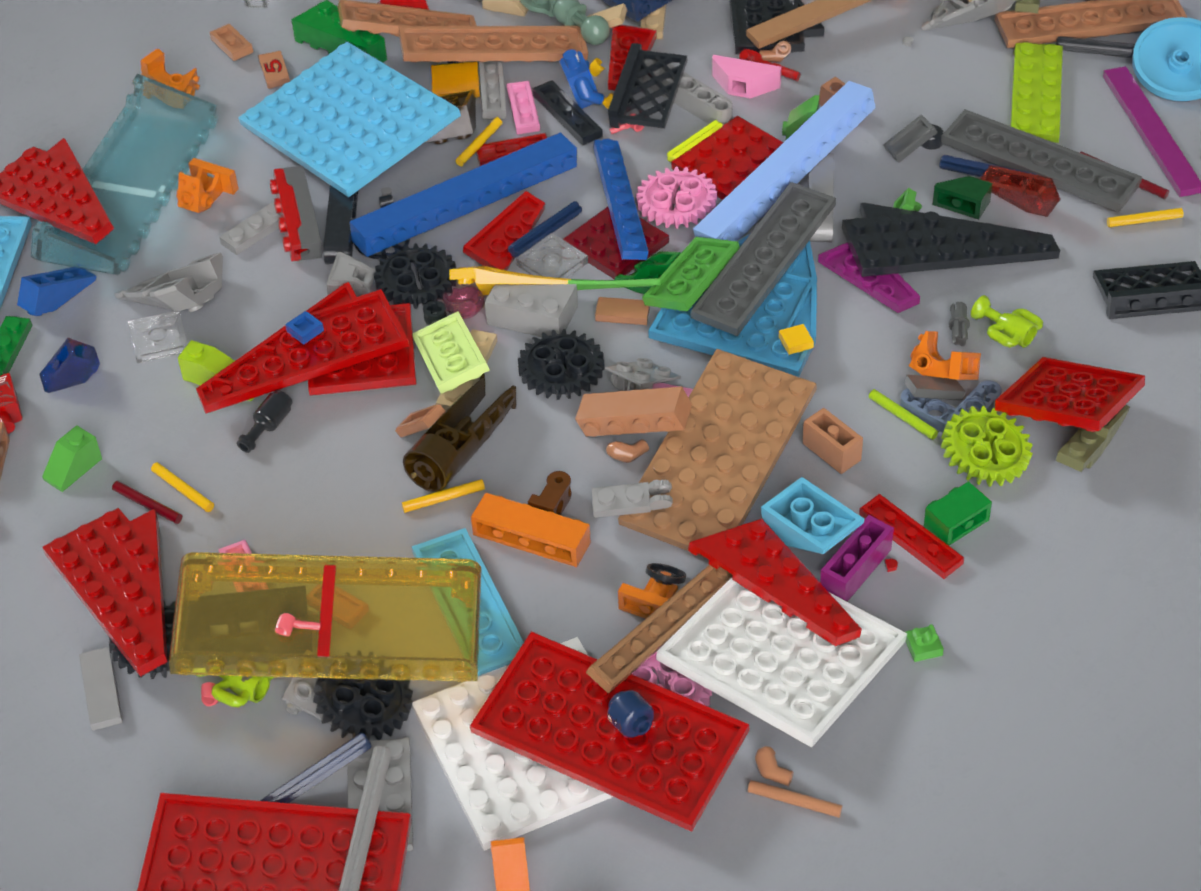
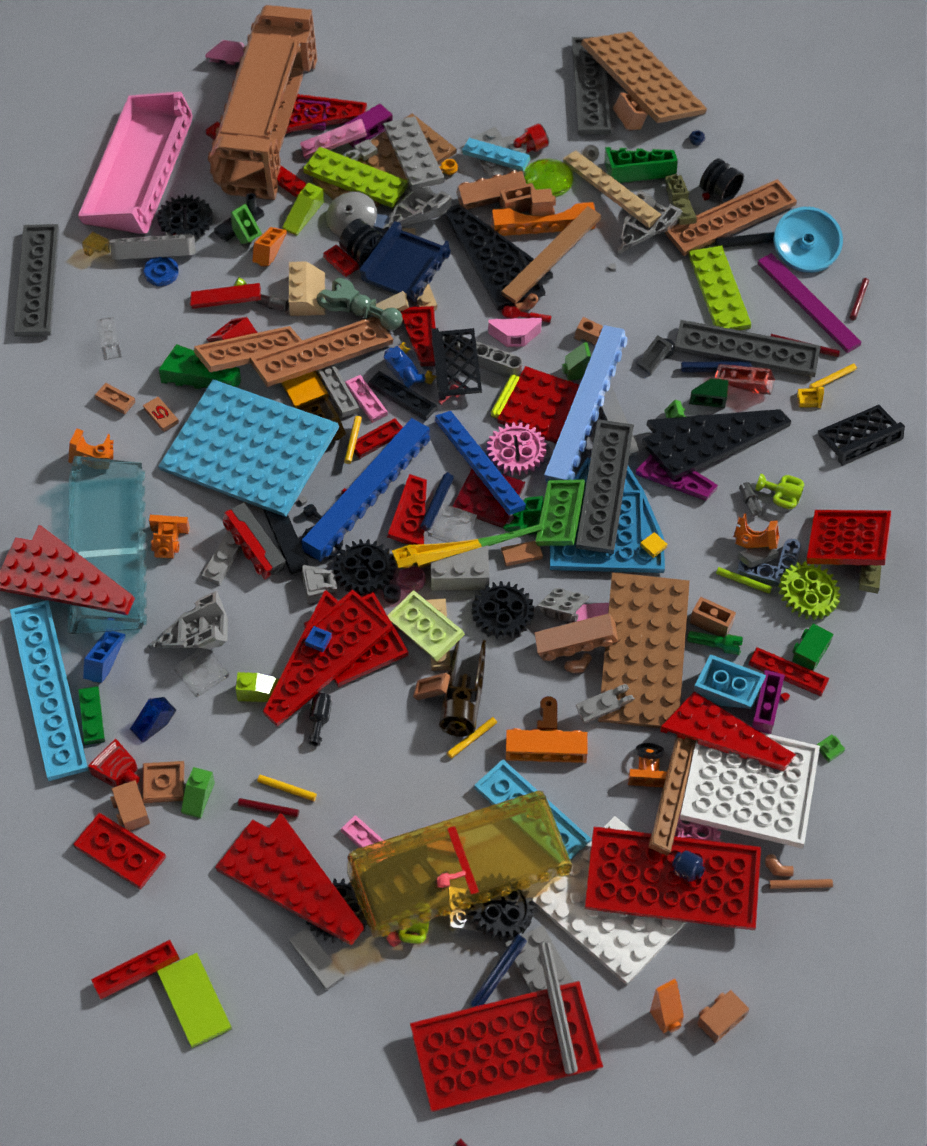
camera: 25 degrees left, 10 degrees up
(37, 438) = (163, 782): none -> nougat tile
(839, 477) = (729, 643): none -> green piece
(1101, 232) = (810, 397): none -> yellow tile

